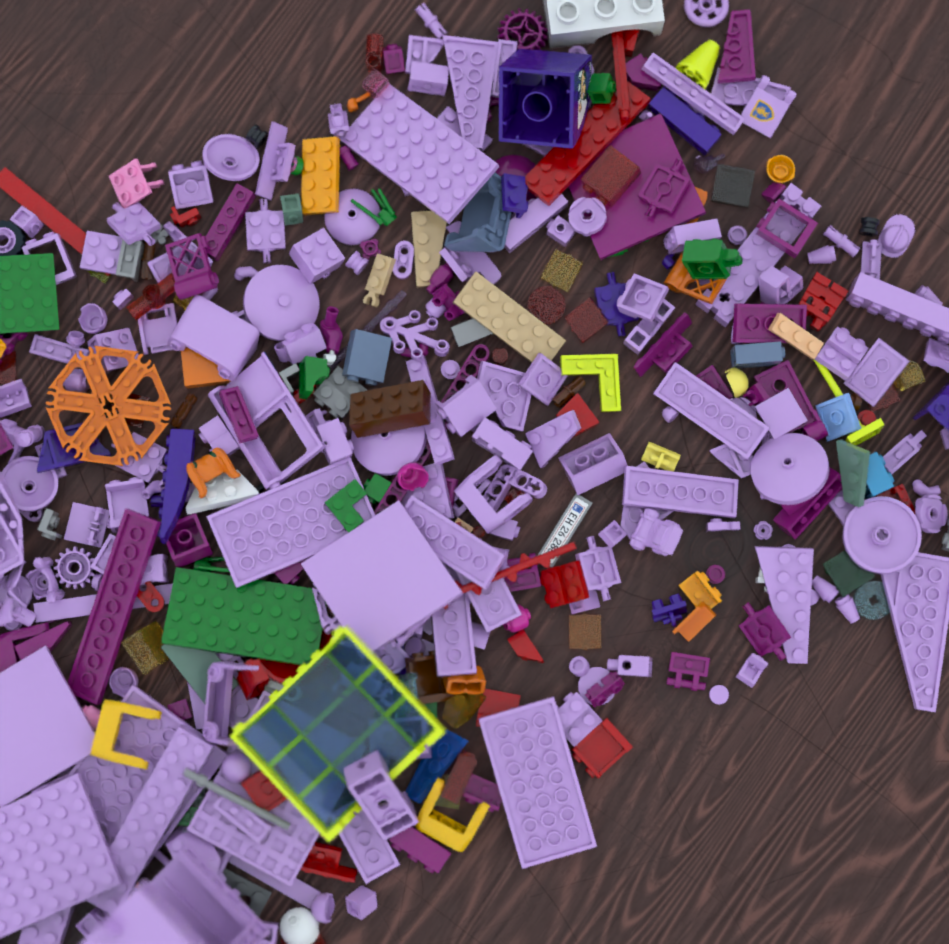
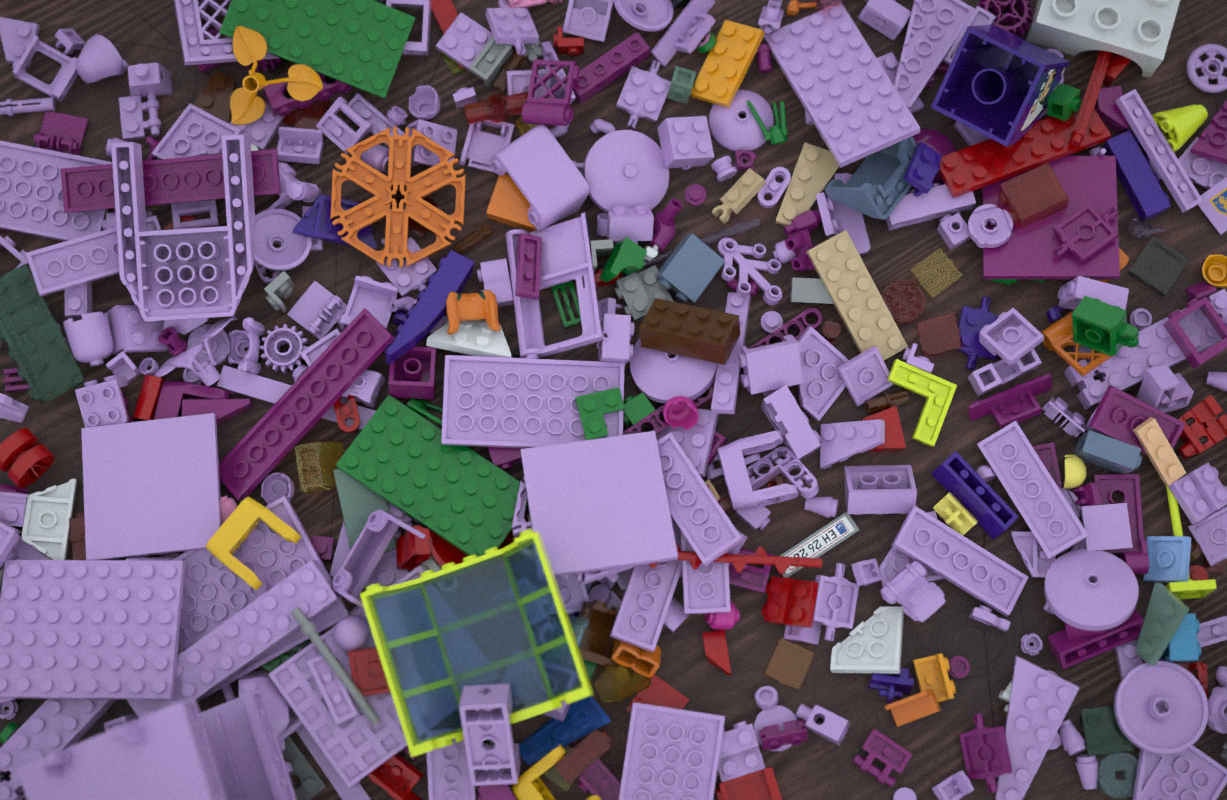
camera: 25 degrees right, 5 degrees down
(35, 372) = (339, 130): none -> lavender plate
(294, 440) = (573, 322): none -> green tile
(343, 294) = (695, 195): none -> magenta plate
(555, 497) = (822, 505): none -> lavender cone
(581, 349) = (920, 362): none -> lavender bracket
(642, 588) = (872, 645): none -> white plate
(669, 435) = (974, 495): none -> dark purple brick
(721, 339) = (1076, 421): none -> lavender hinge

